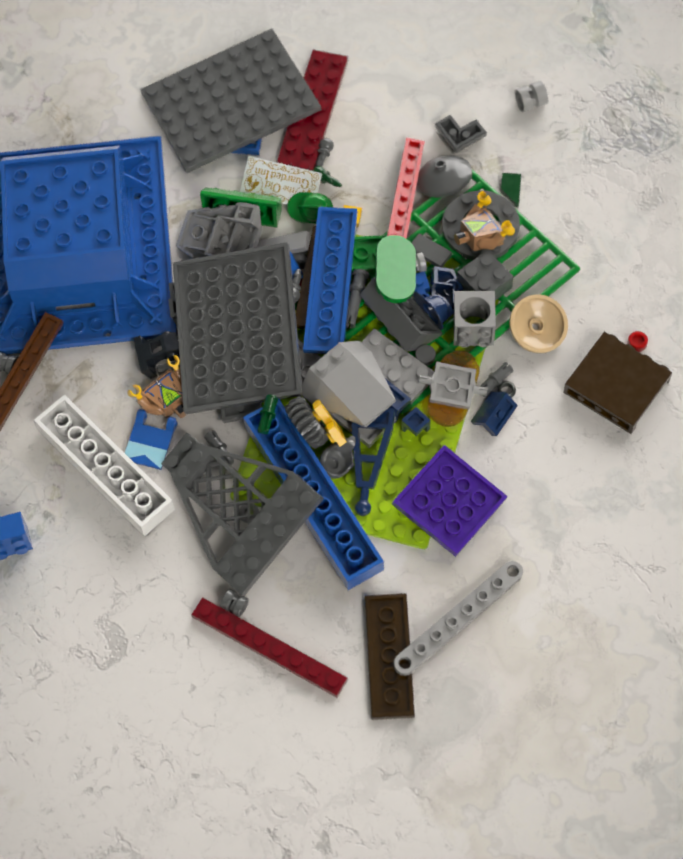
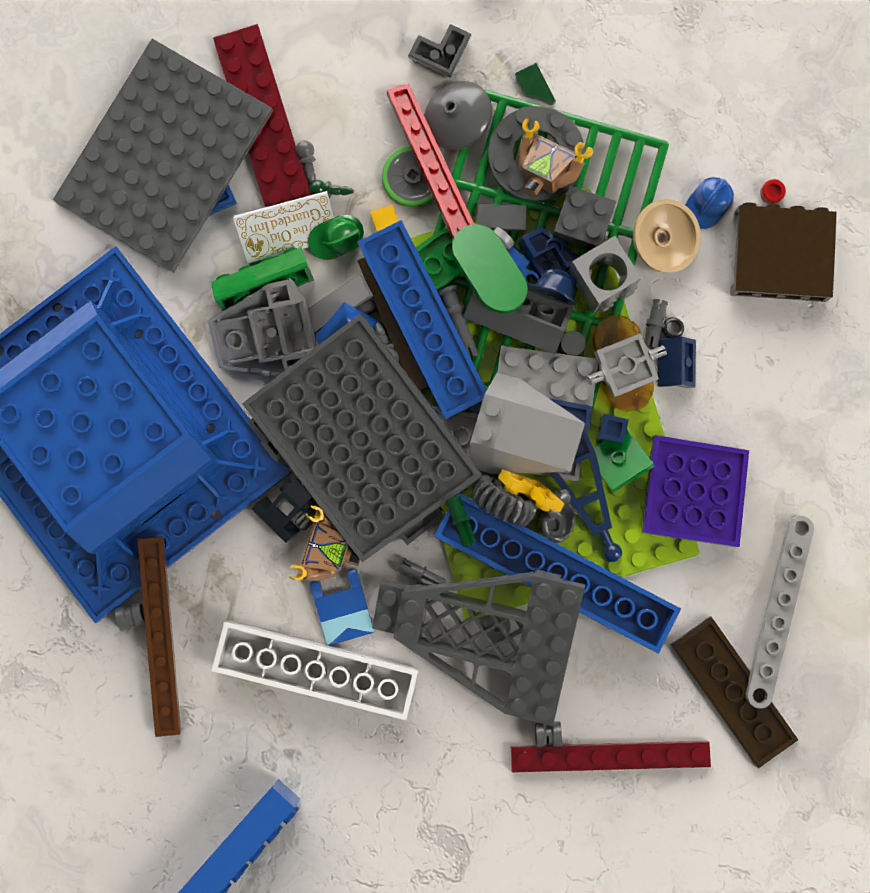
camera: 30 degrees left, 20 degrees up
(376, 196) = (397, 181): none -> dark grey wheel
(408, 448) = (621, 462): none -> green plate
(587, 324) = (710, 201): none -> blue piece

